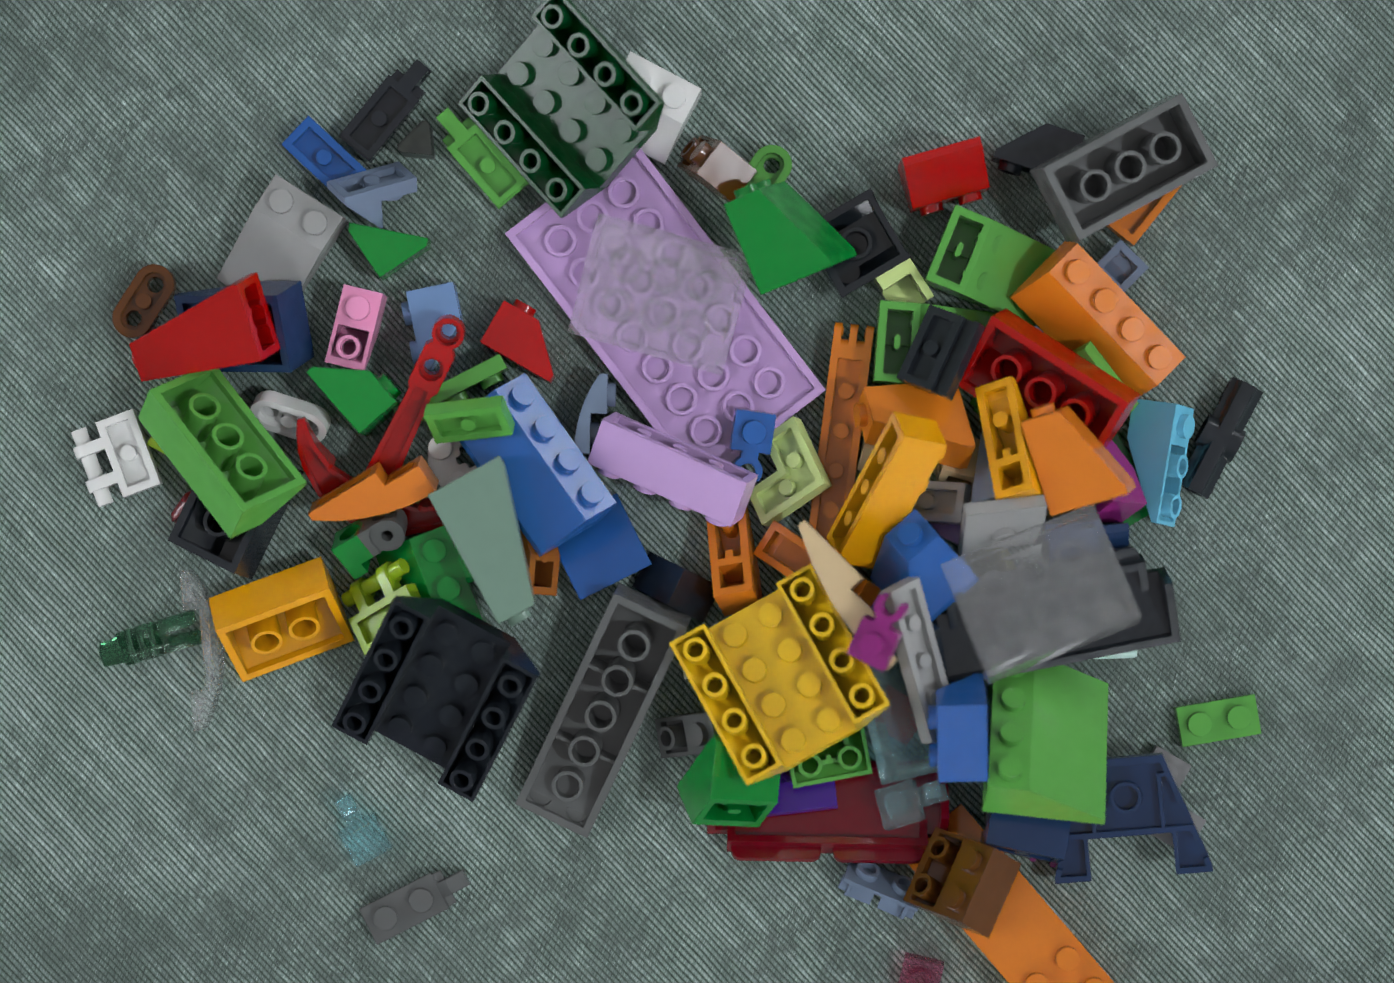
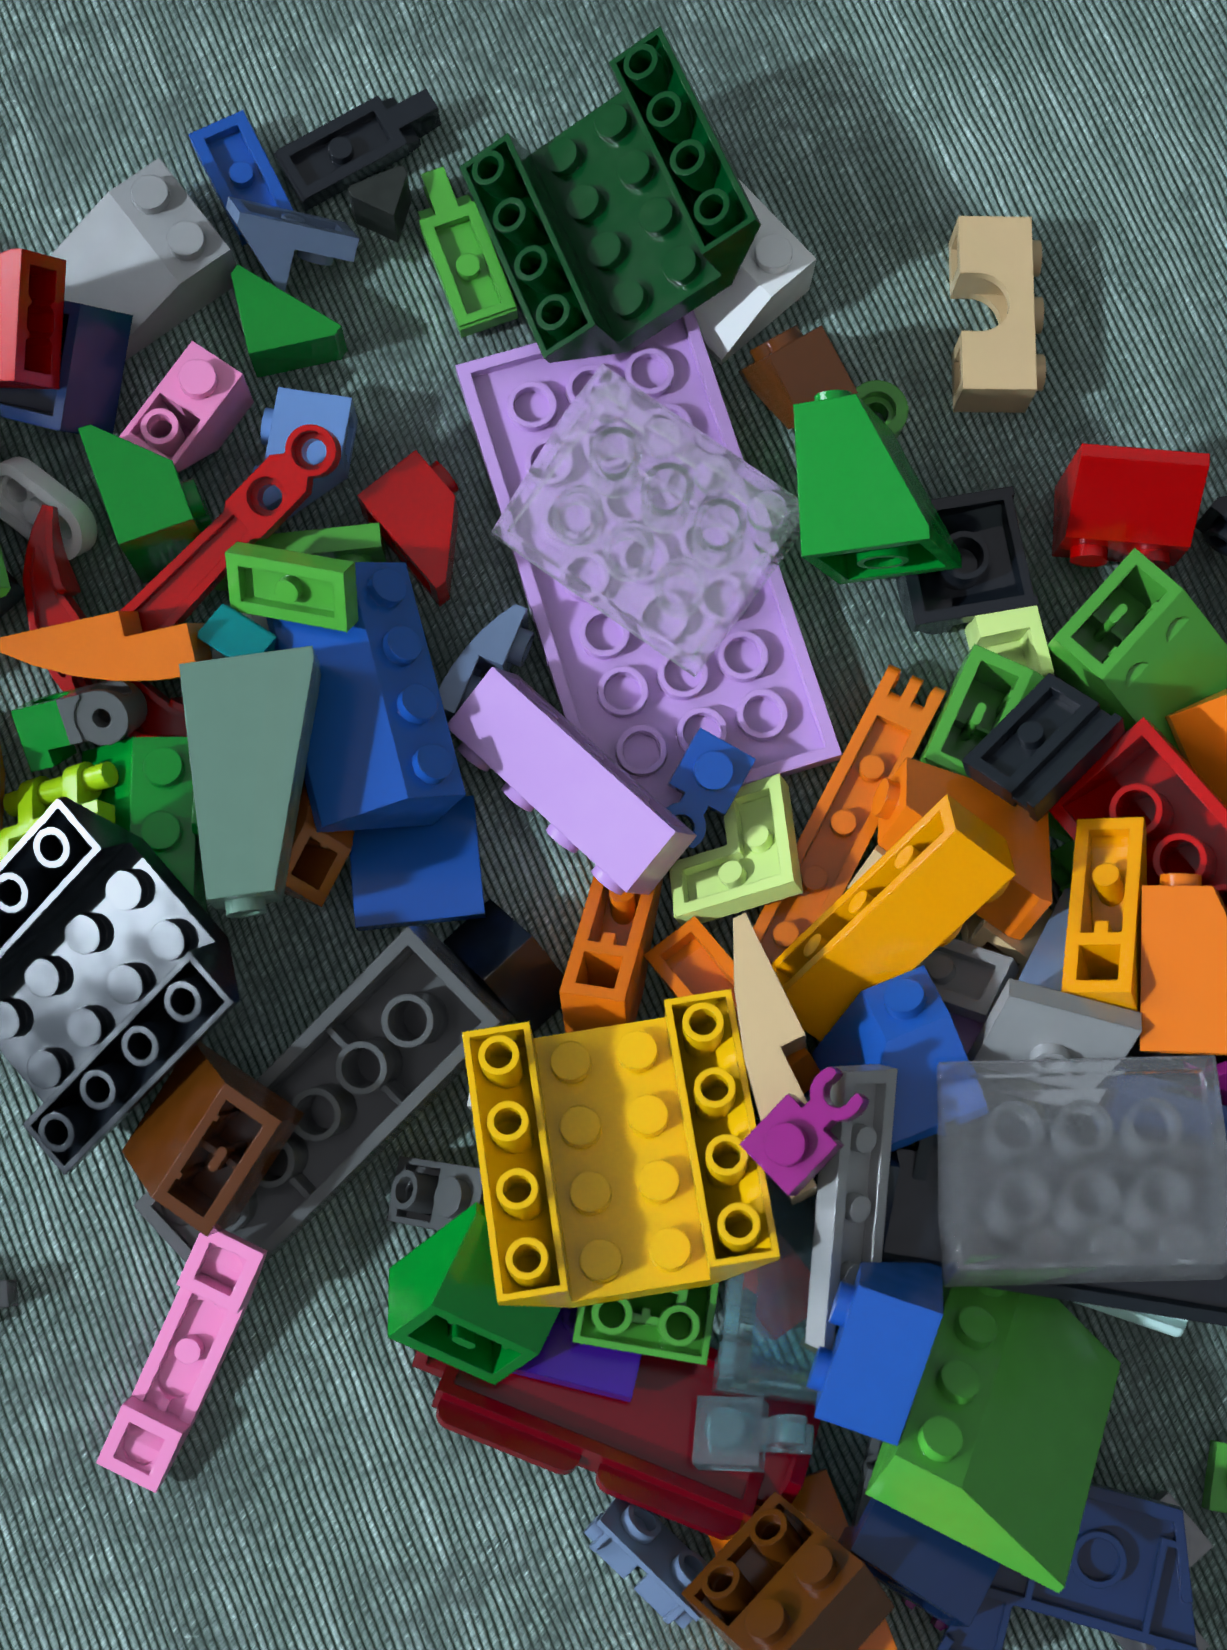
camera: 10 degrees right, 10 degrees down
(448, 459) = (235, 633): none -> teal slope
(547, 753) = (209, 1140): none -> reddish brown slope
(578, 876) = (184, 1359): none -> bright pink slope
(813, 40) = (997, 264): none -> tan arch

